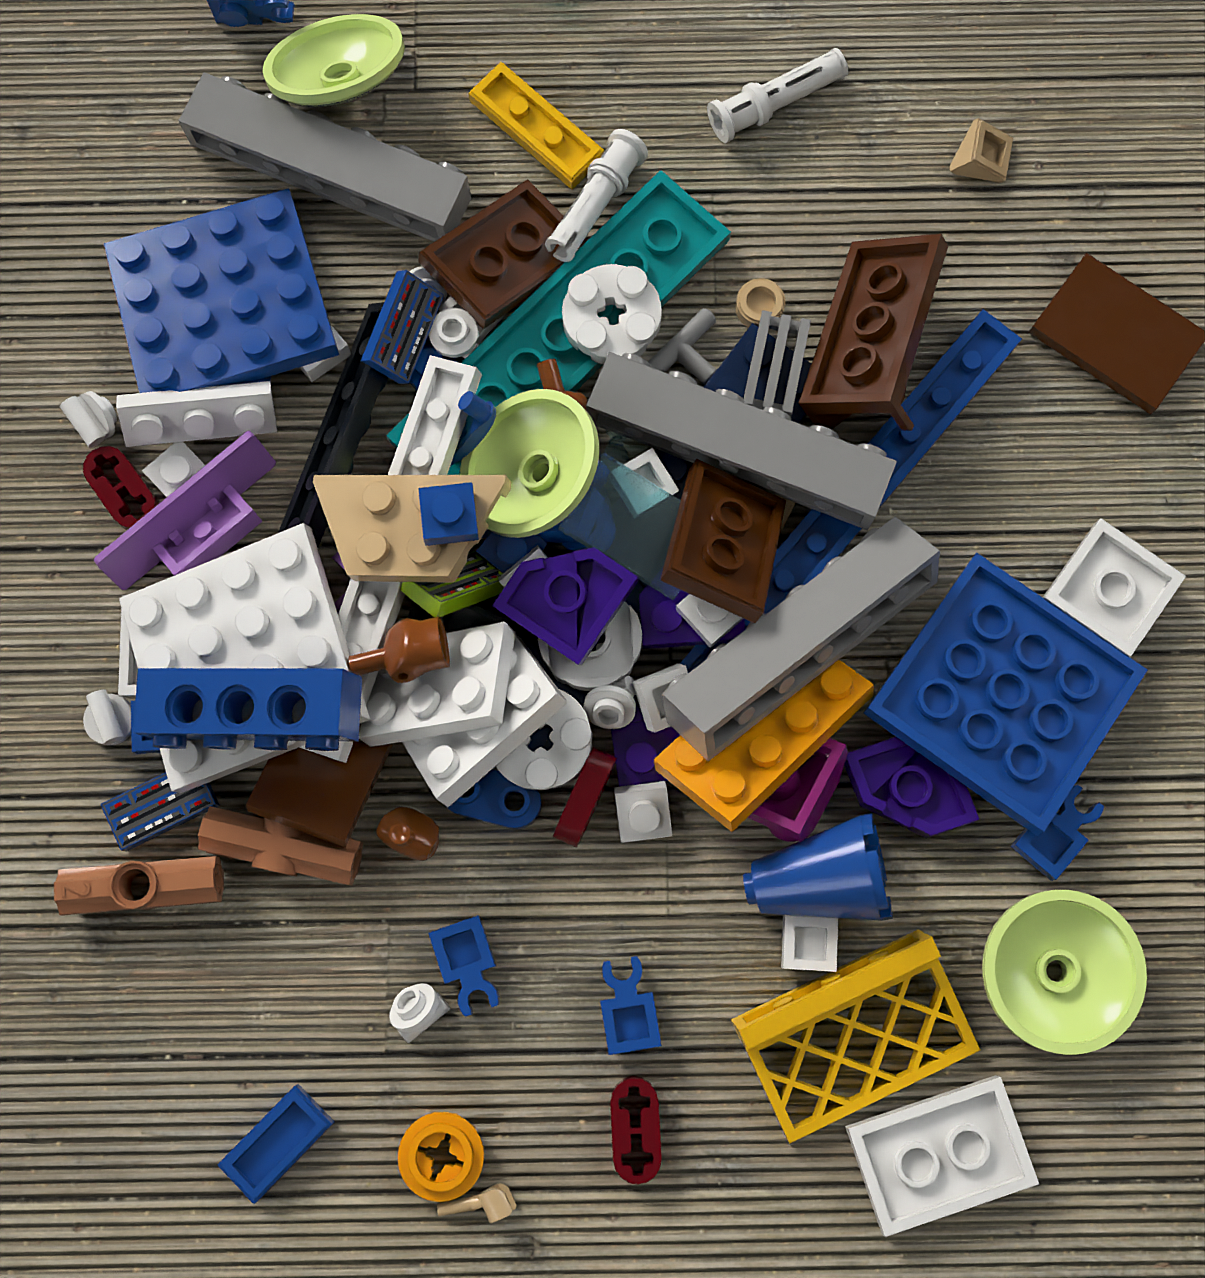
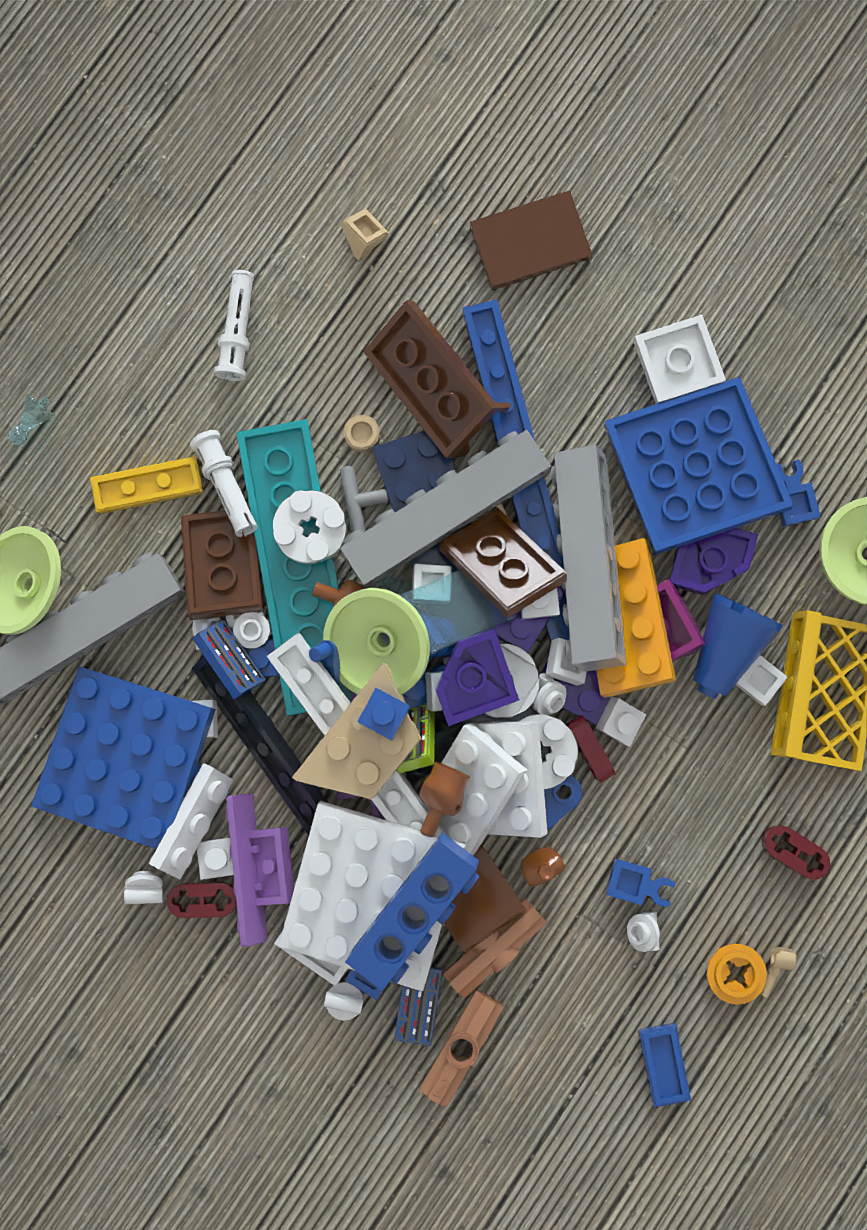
camera: 60 degrees left, 5 degrees up
(629, 1017) = (730, 811): blue plate -> none
(784, 326) = (391, 430): light grey tile -> none

